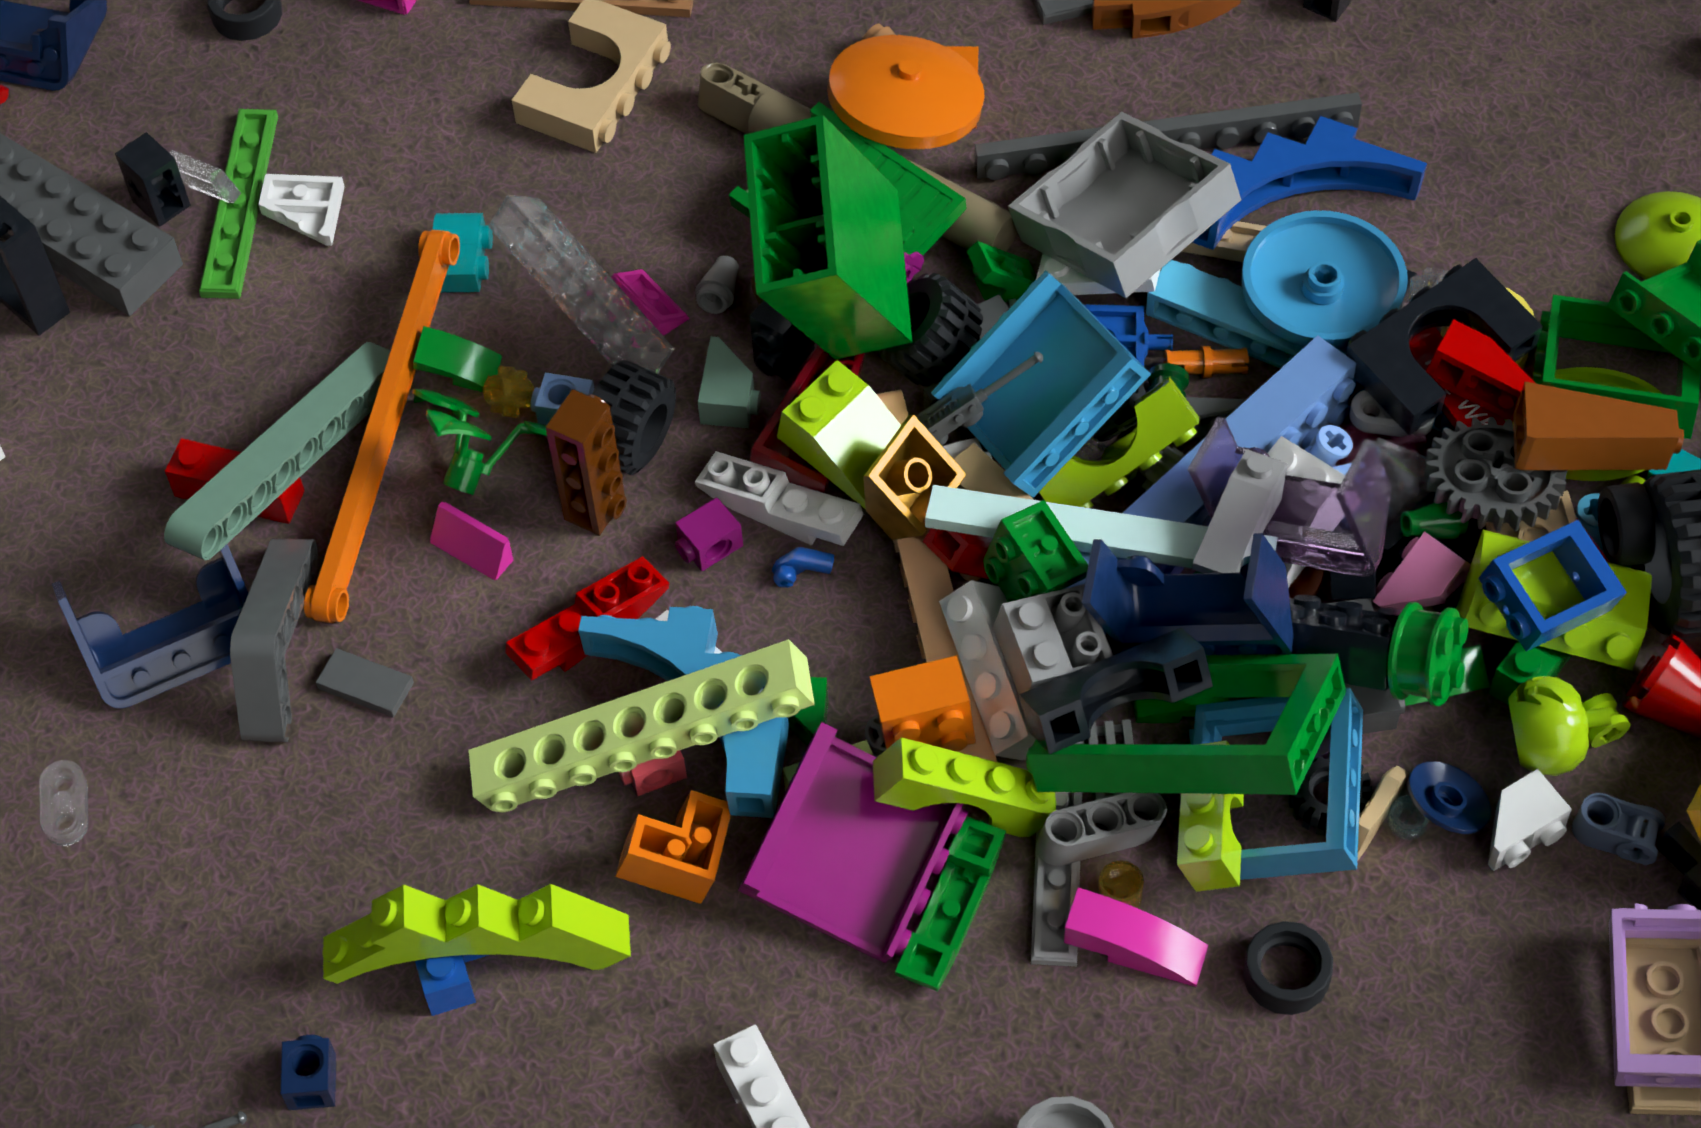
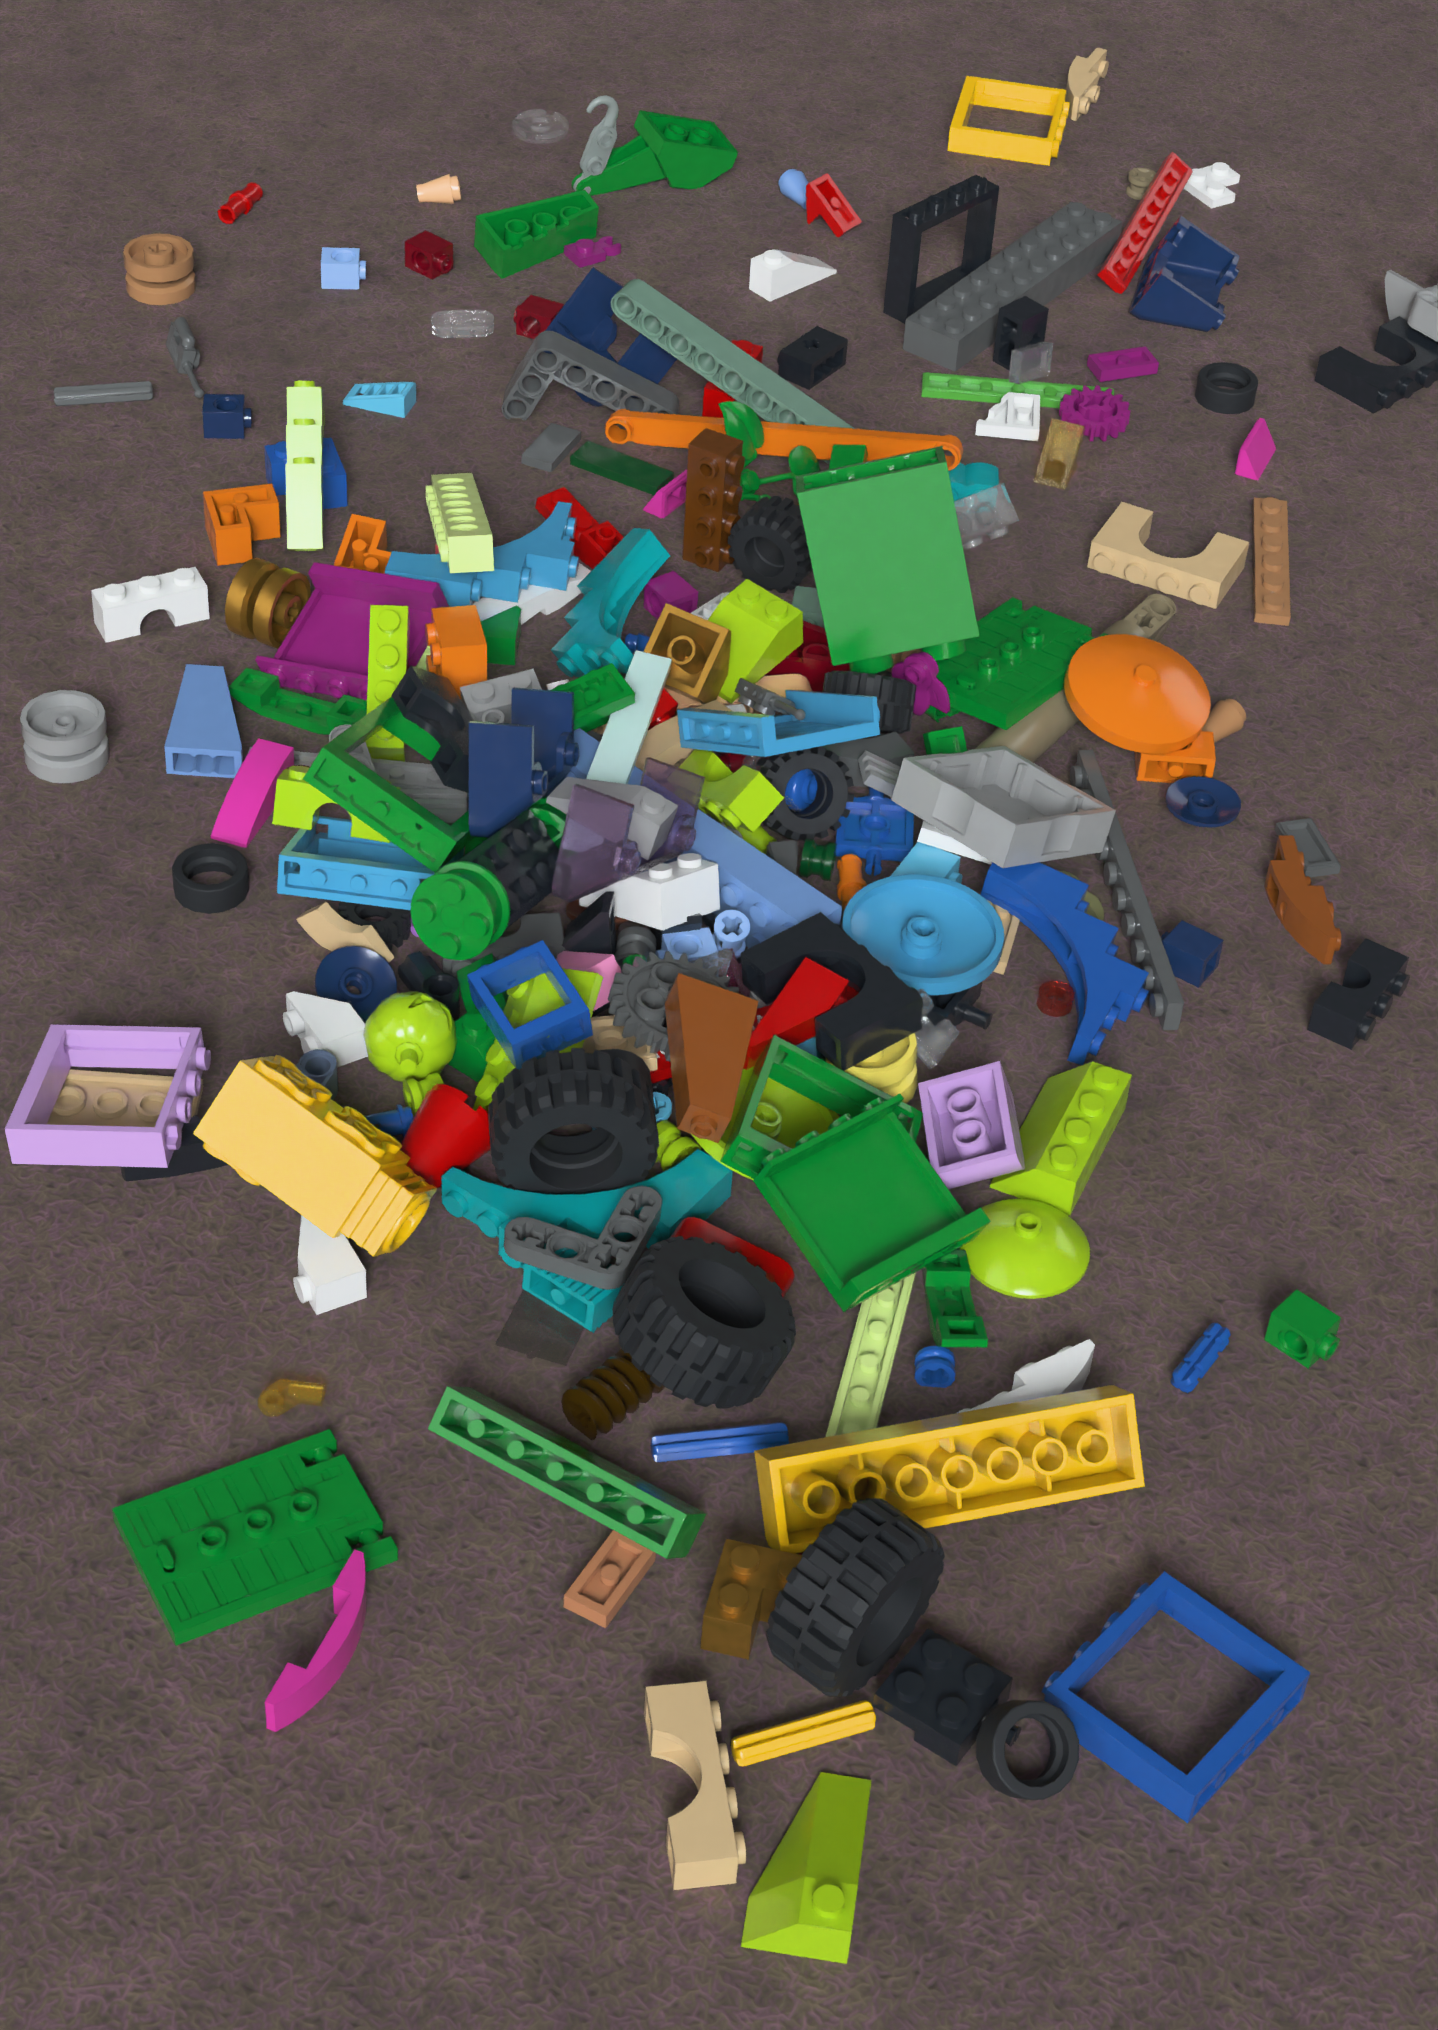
camera: 85 degrees right, 15 degrees down
(64, 706) = (535, 315): none -> dark red brick
(171, 400) = (812, 357): none -> black brick
(186, 97) = (1122, 364): none -> magenta plate
(238, 866) = (385, 398): none -> medium azure slope
(303, 125) = (1096, 412): none -> magenta gear
(402, 159) = (1059, 454): none -> clear yellow slope
(411, 603) = (621, 467): none -> dark green tile
(583, 1027) = (237, 518): none -> orange brick
(770, 597) = (607, 600): none -> teal arch
(781, 951) = (265, 601): none -> pearl gold wheel
(1004, 1008) = (203, 726): none -> medium blue slope
(1026, 58) = (1203, 801): none -> dark blue dish
(1264, 86) = (1192, 952): none -> dark blue brick
(1341, 193) = (1057, 990): none -> clear red bush
(1435, 730) = (423, 975): none -> black piece
(1539, 197) = (1067, 1134): none -> lime slope
(1576, 252) = (971, 1125): none -> lavender brick
(1642, 754) = (393, 1121): none -> blue pin

